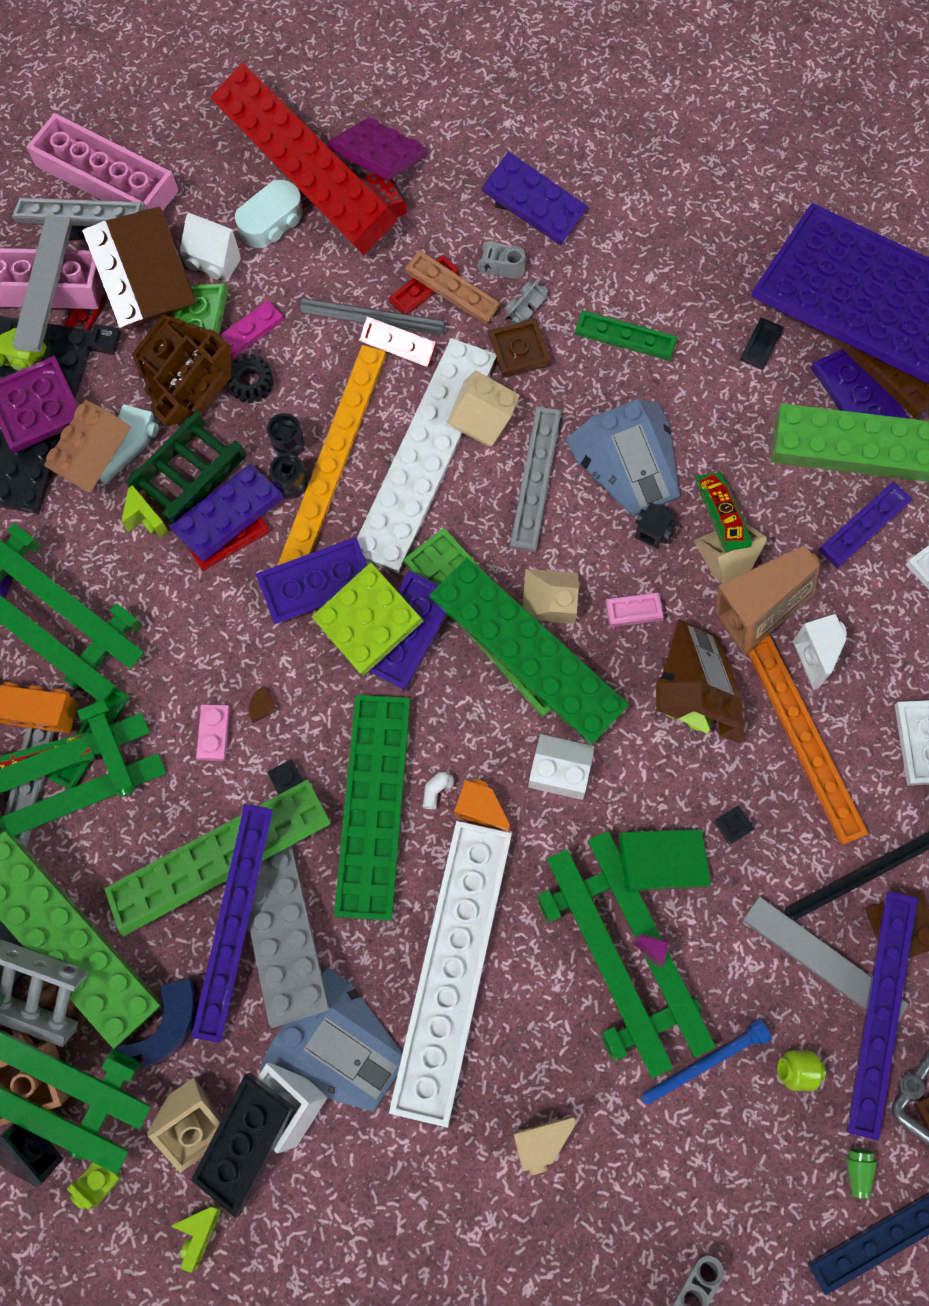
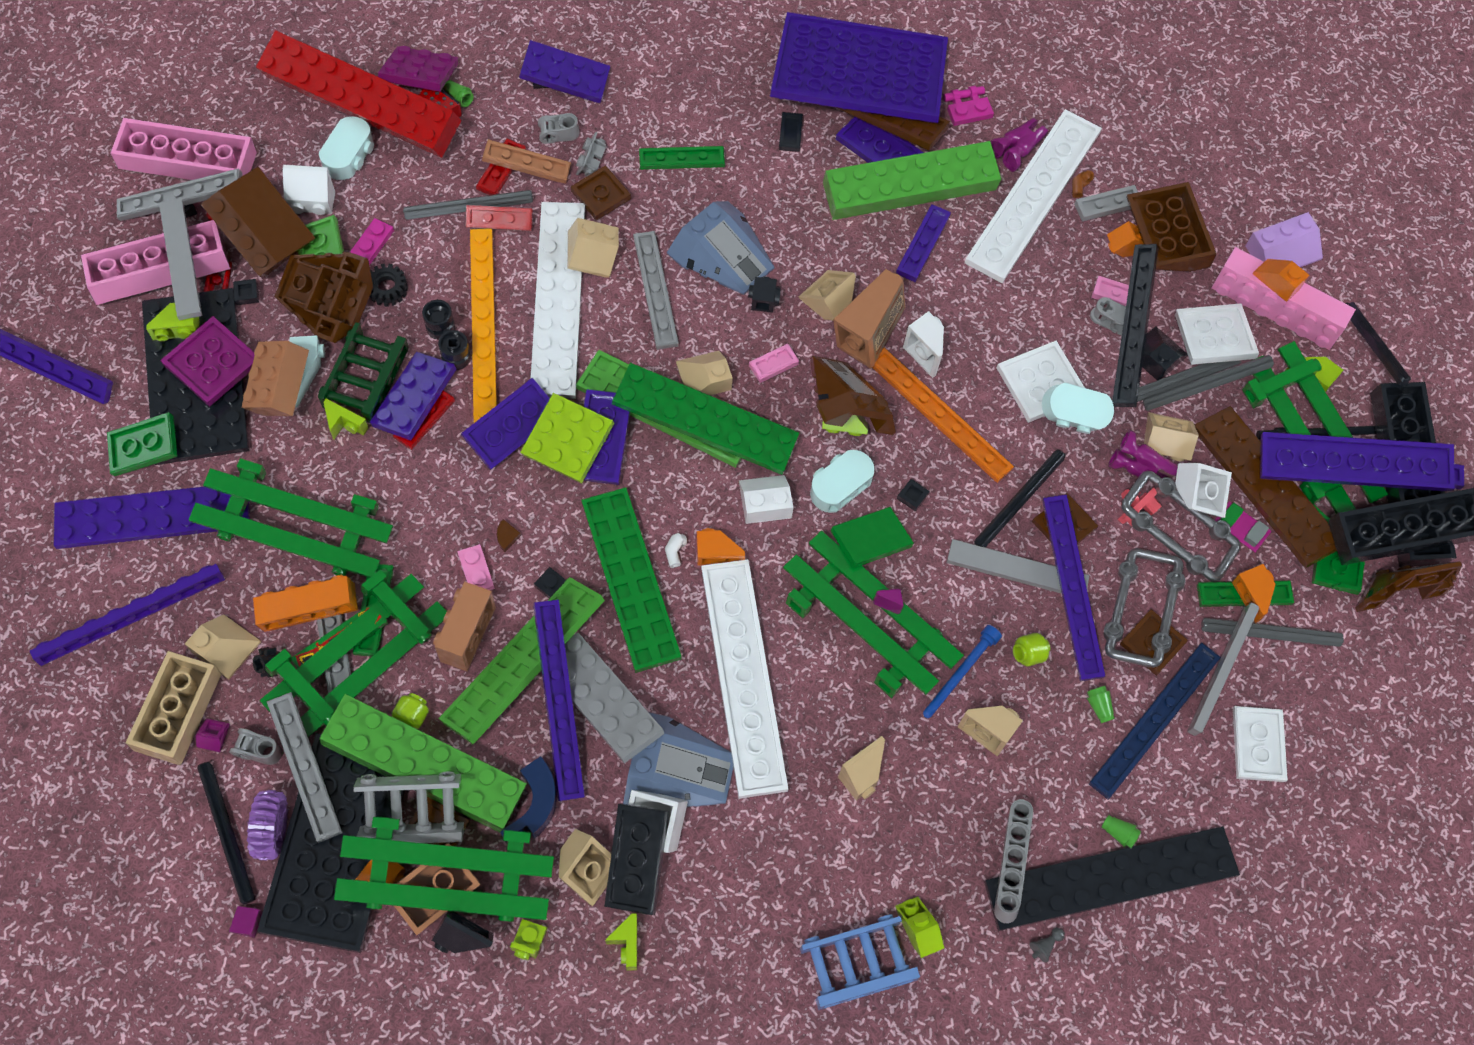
camera: 30 degrees left, 5 degrees down
(76, 870) = (411, 710): none -> lime head
(169, 796) = (464, 626): none -> nougat brick
(411, 189) = (459, 93): none -> bright green cone
(656, 777) = (841, 480): none -> light aqua brick
(717, 1155) = (991, 726): none -> tan slope
(723, 512) = (813, 266): tile -> none

